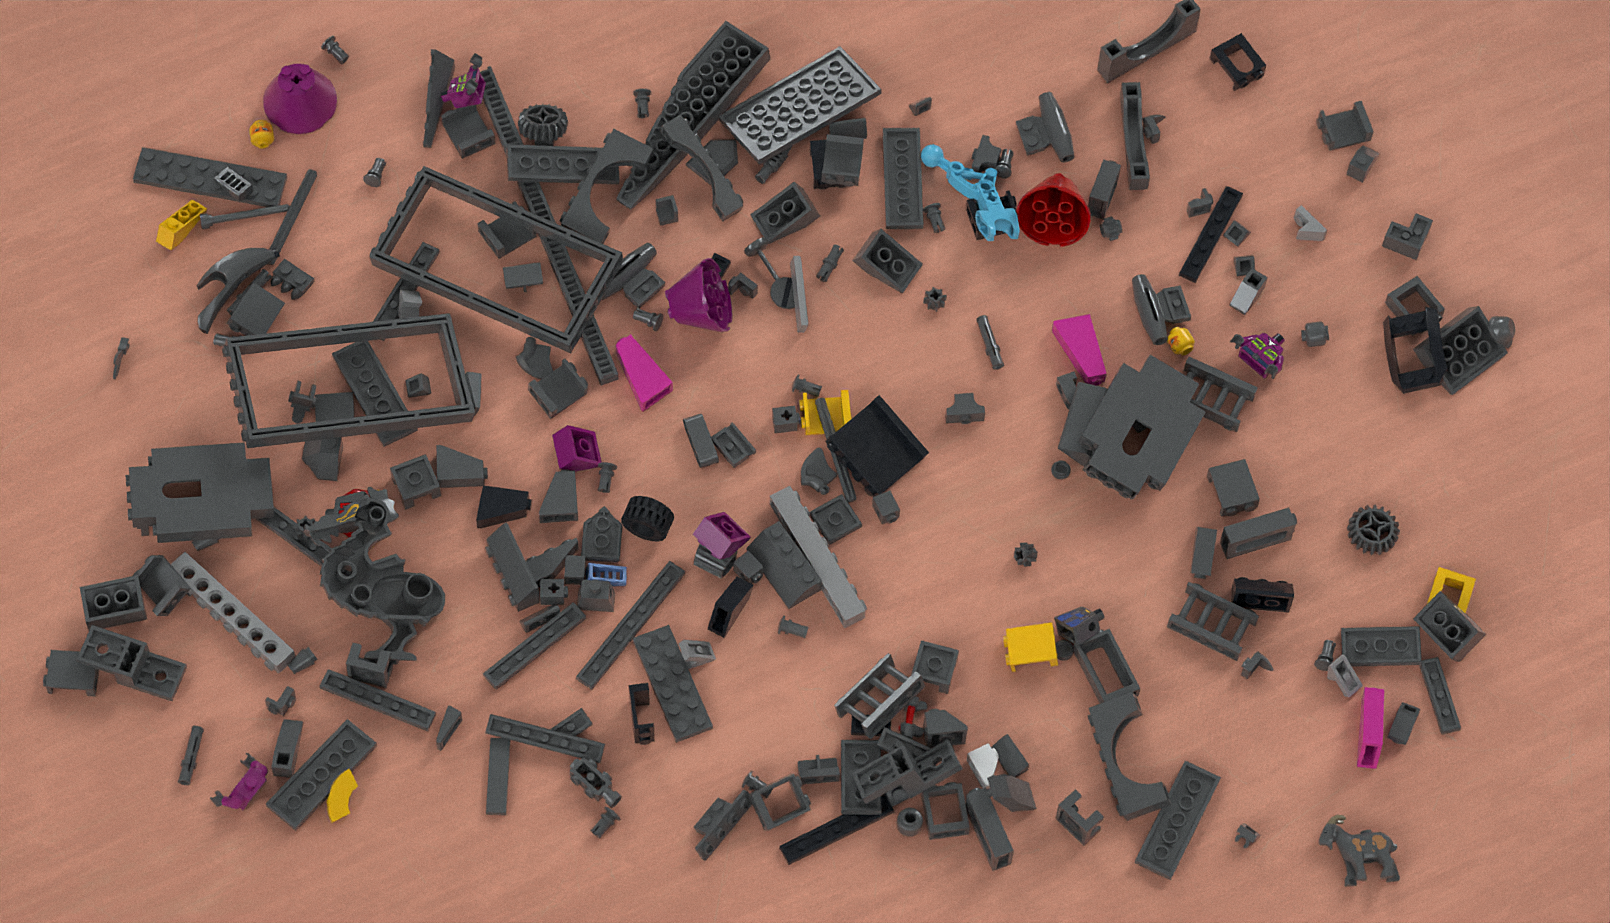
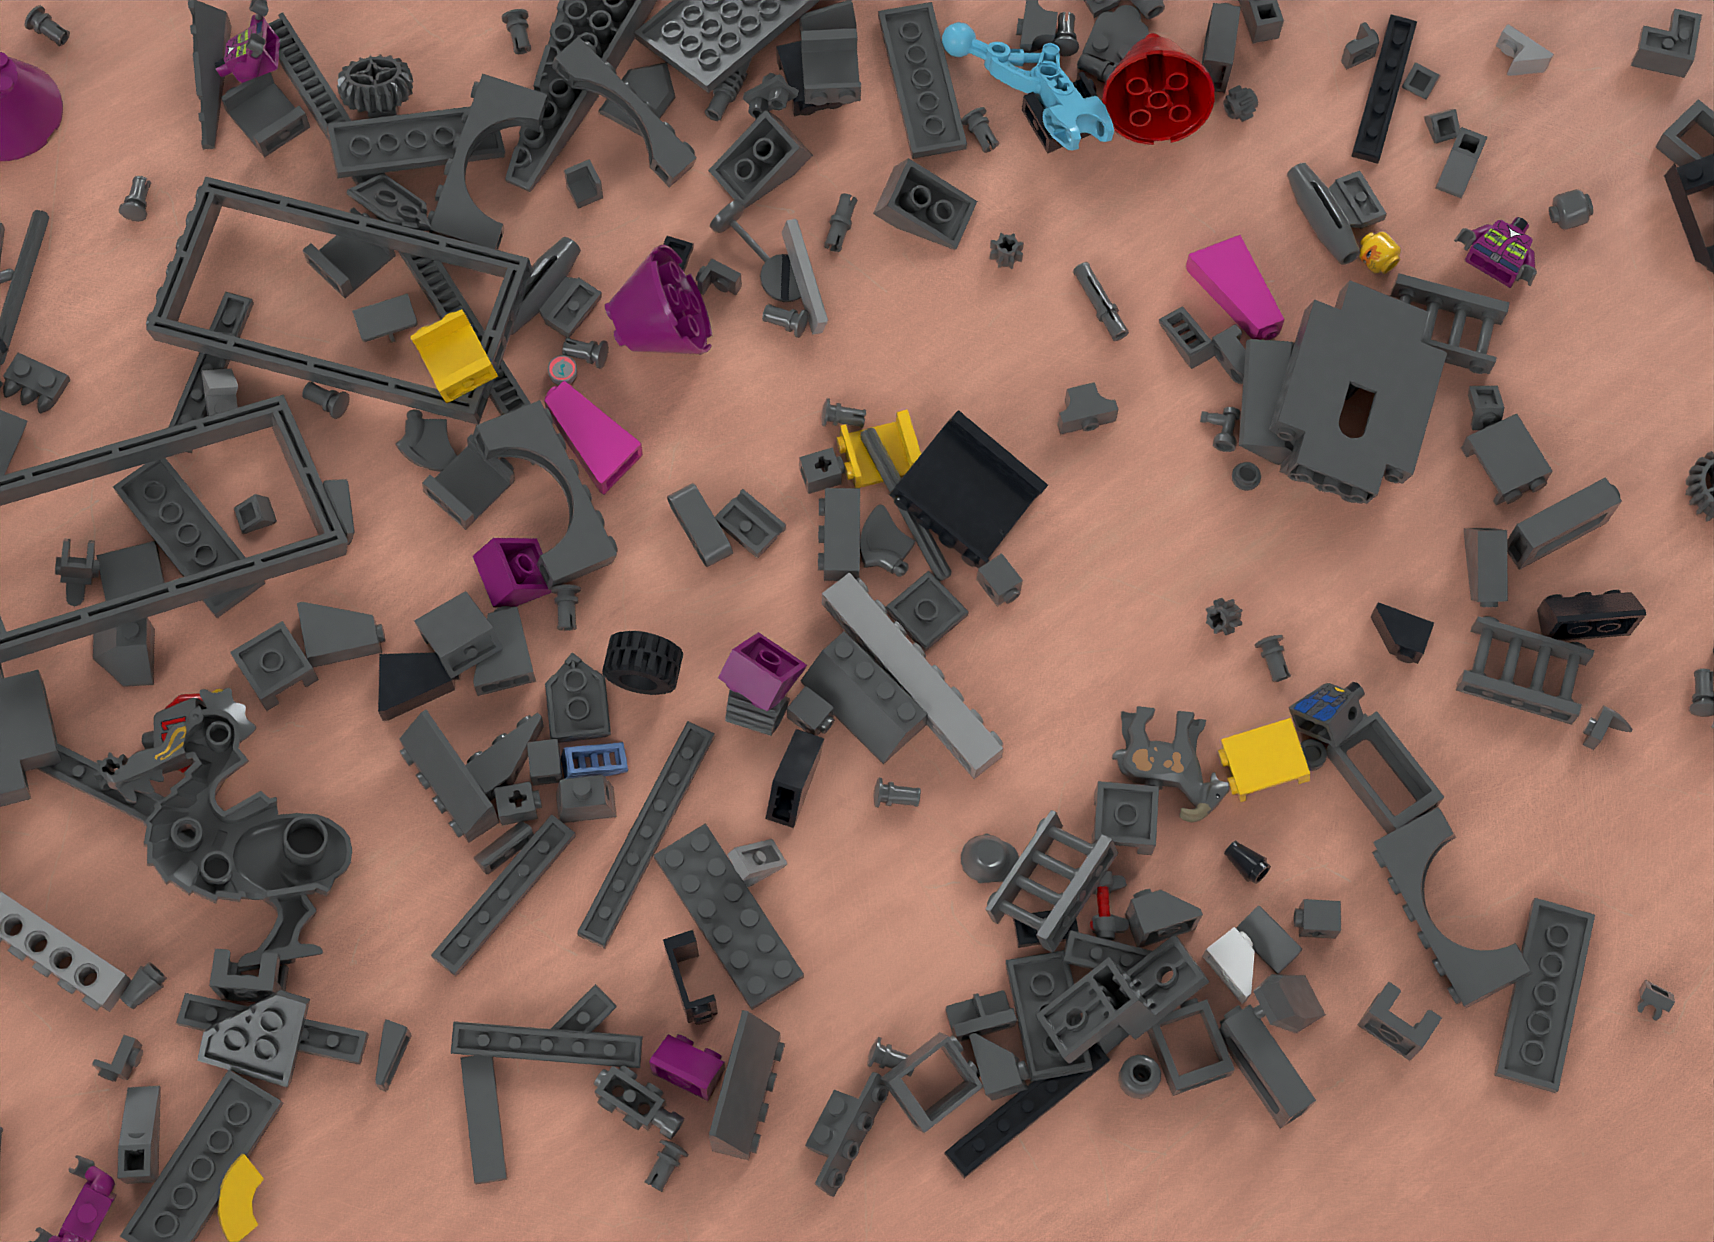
camera: 10 degrees left, 5 degrees up
(369, 703) = (259, 1038): none -> dark grey plate
(479, 322) = (331, 400): none -> dark grey pin
(535, 481) = (459, 634): none -> dark grey panel
(540, 202) = (391, 202): none -> dark grey tile
(563, 306) = (454, 356): none -> yellow panel
(603, 365) = (531, 436): none -> dark grey arch
(629, 767) = (687, 1066): none -> magenta slope
(632, 327) = (562, 369): none -> light grey tile
(662, 783) = (745, 1088): none -> dark grey slope
(783, 319) = (789, 319): none -> dark grey pin
(789, 460) = (840, 533): none -> dark grey brick
(799, 172) = (769, 95): none -> dark grey hips
(822, 802) = (999, 1068): none -> dark grey slope
(842, 677) = (988, 858): none -> dark grey hat
(971, 639) = (1169, 763): none -> dark grey animal
(1007, 708) = (1247, 862): none -> black cone
(1018, 187) = (1096, 67): none -> dark grey pin
(1037, 168) = (1115, 34): none -> dark grey plate
(1044, 749) = (1318, 918): none -> dark grey brick
(1046, 385) = (1195, 352): none -> dark grey slope
(1052, 444) = (1225, 440): none -> dark grey piece
(1052, 585) = (1274, 657): none -> dark grey pin
(1139, 584) = (1402, 632): none -> black slope
(1227, 451) = (1485, 405): none -> dark grey bracket

